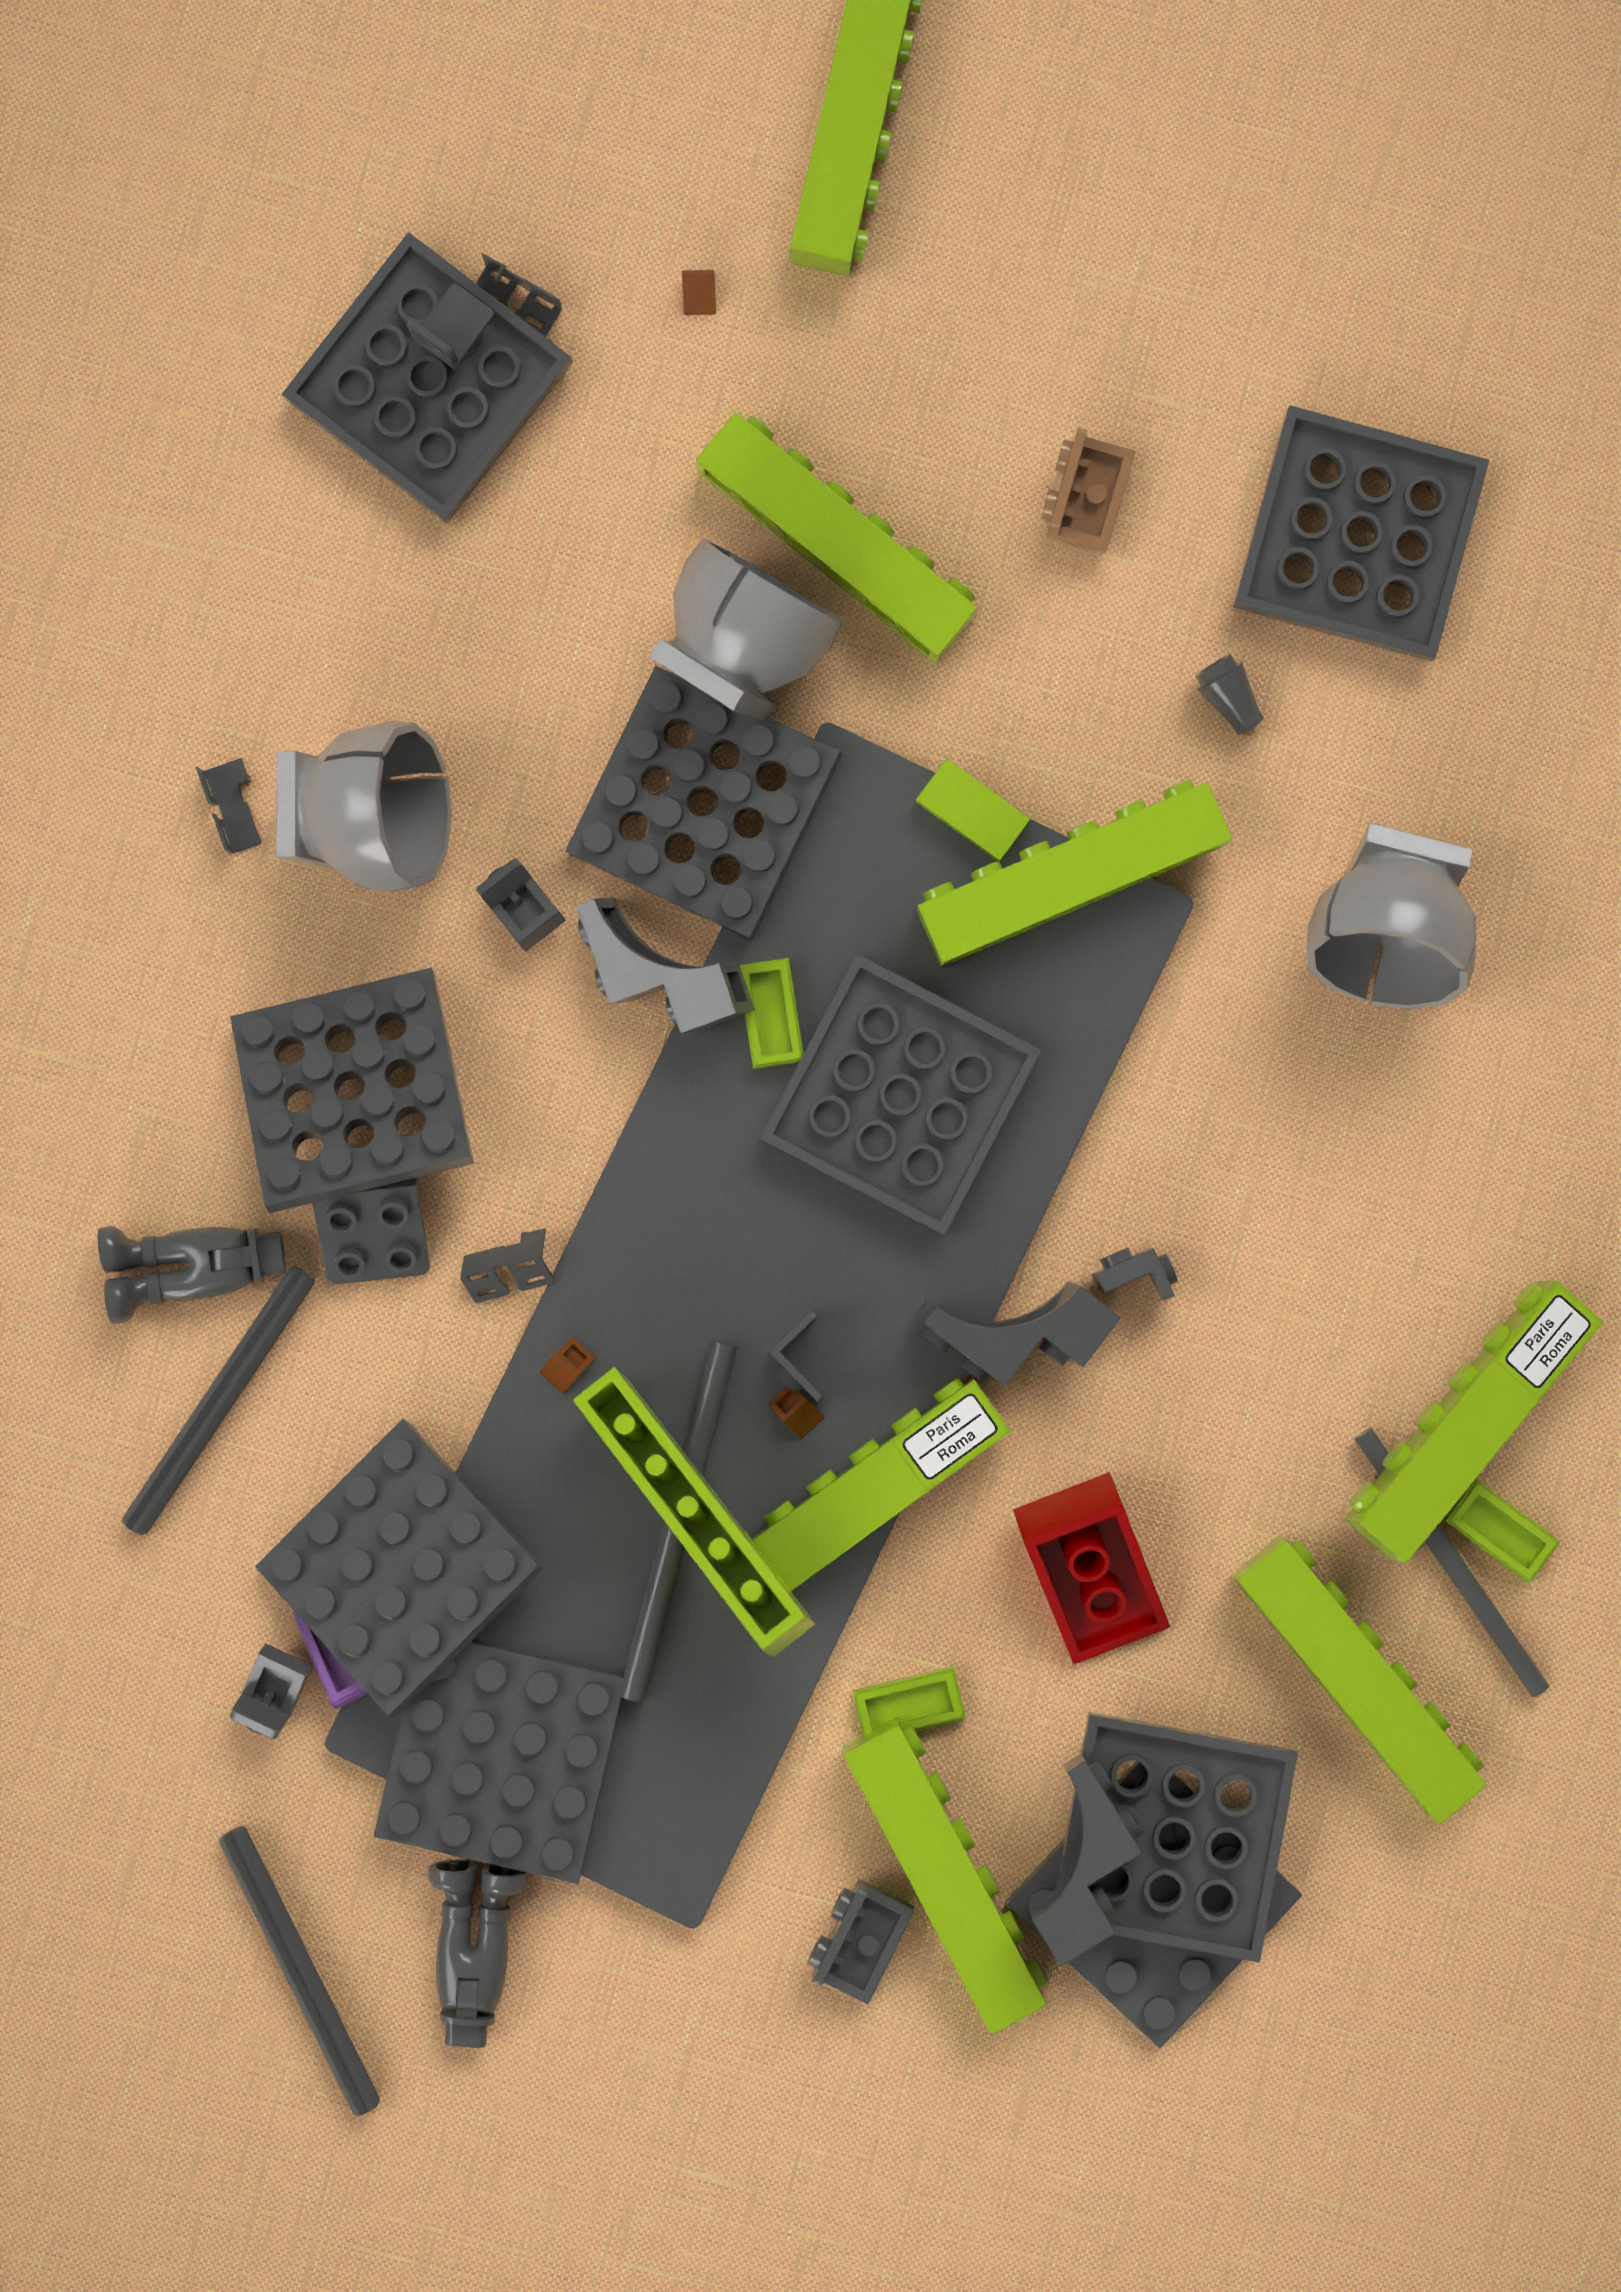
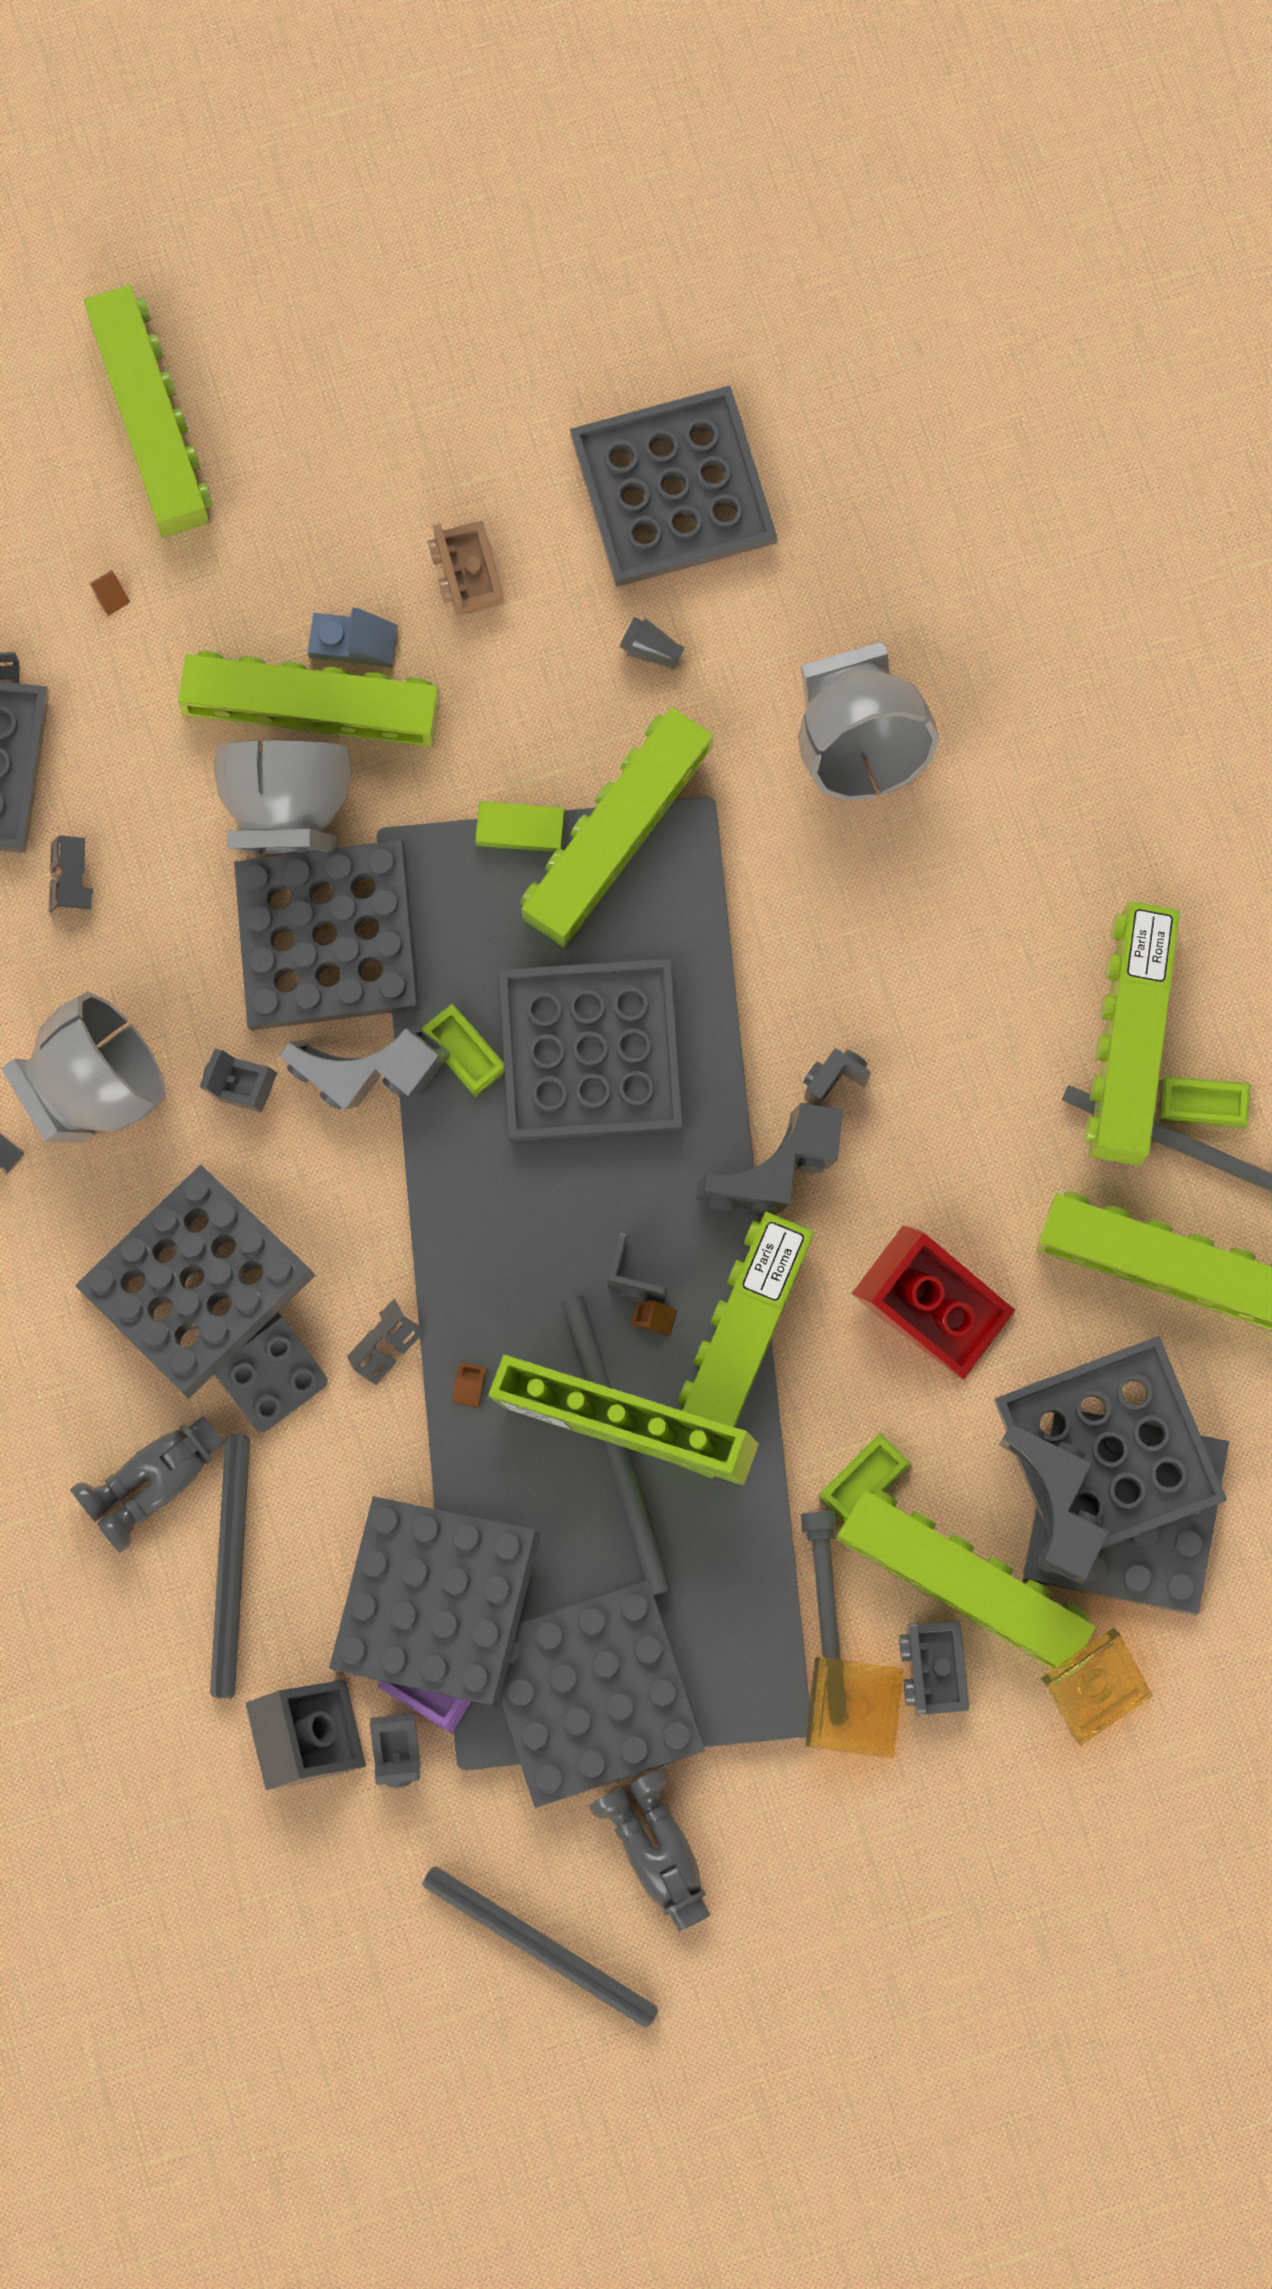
camera: 35 degrees left, 10 degrees down
(191, 1620) = (305, 1734): none -> dark grey slope
(487, 566) = (70, 883): none -> dark grey piece
(755, 1930) = (854, 1707): none -> clear yellow tile
(831, 1729) = (820, 1530): none -> dark grey piece
(923, 497) = (353, 639): none -> sand blue slope
(1010, 2062) = (1096, 1686): none -> clear yellow tile

